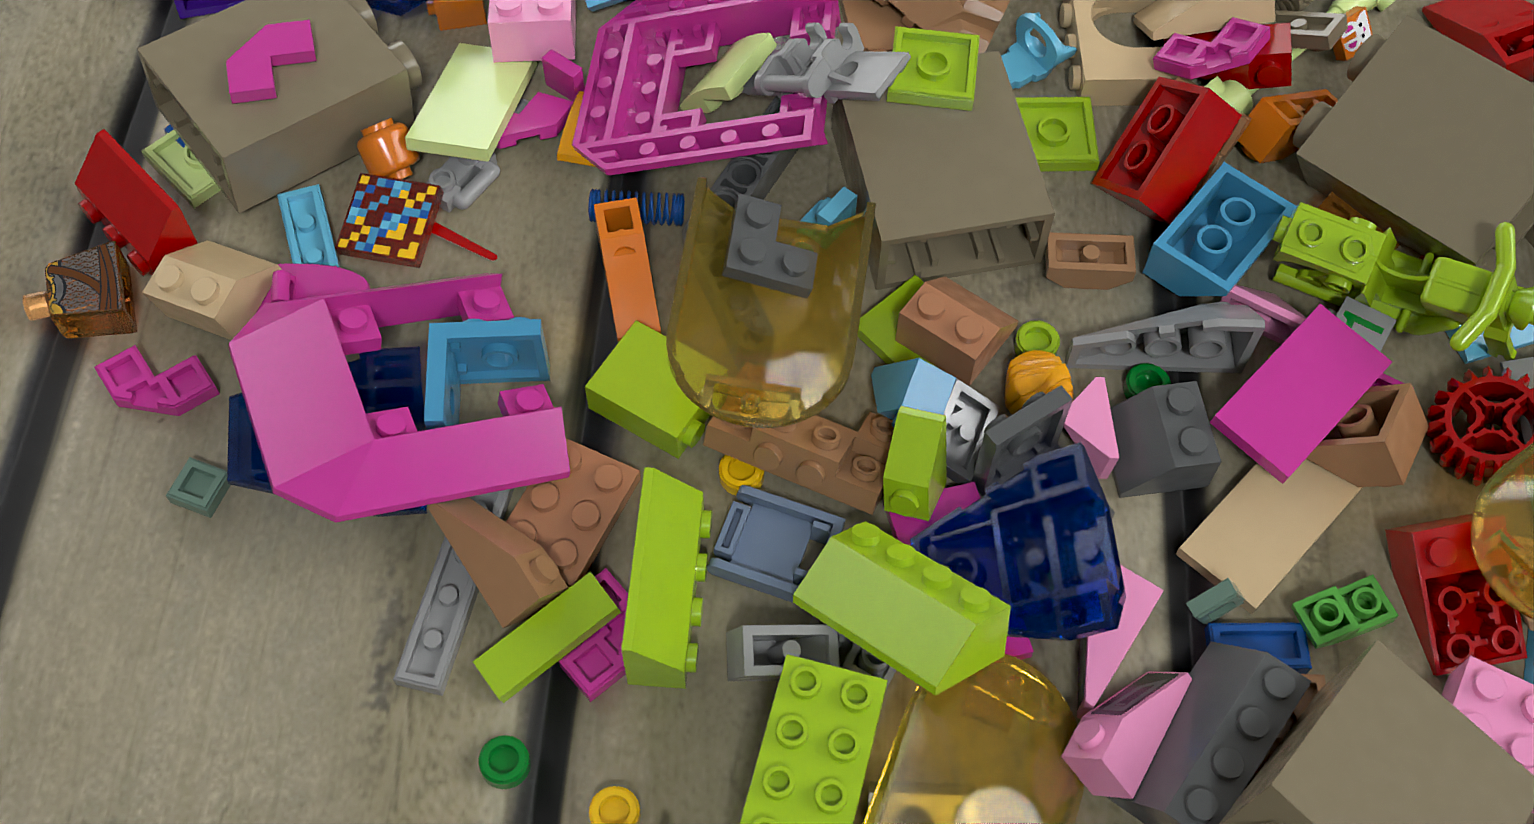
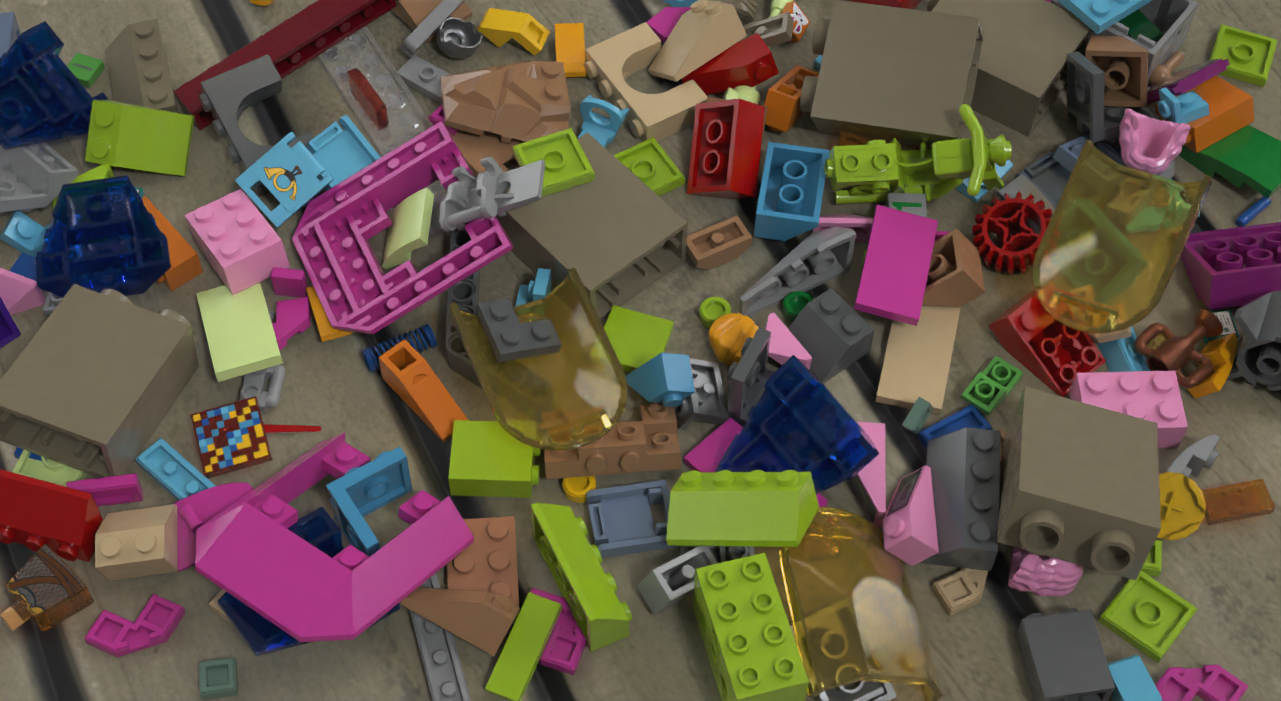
camera: 30 degrees left, 5 degrees down
(220, 214) = (111, 489): none -> dark pink tile
(276, 44) = (82, 369): dark pink tile -> none
(385, 150) = (200, 389): orange head -> none
(915, 464) = (693, 421): lime slope -> none
(953, 328) = (661, 327): nougat slope -> none
(1231, 48) = (711, 82): dark pink tile -> none

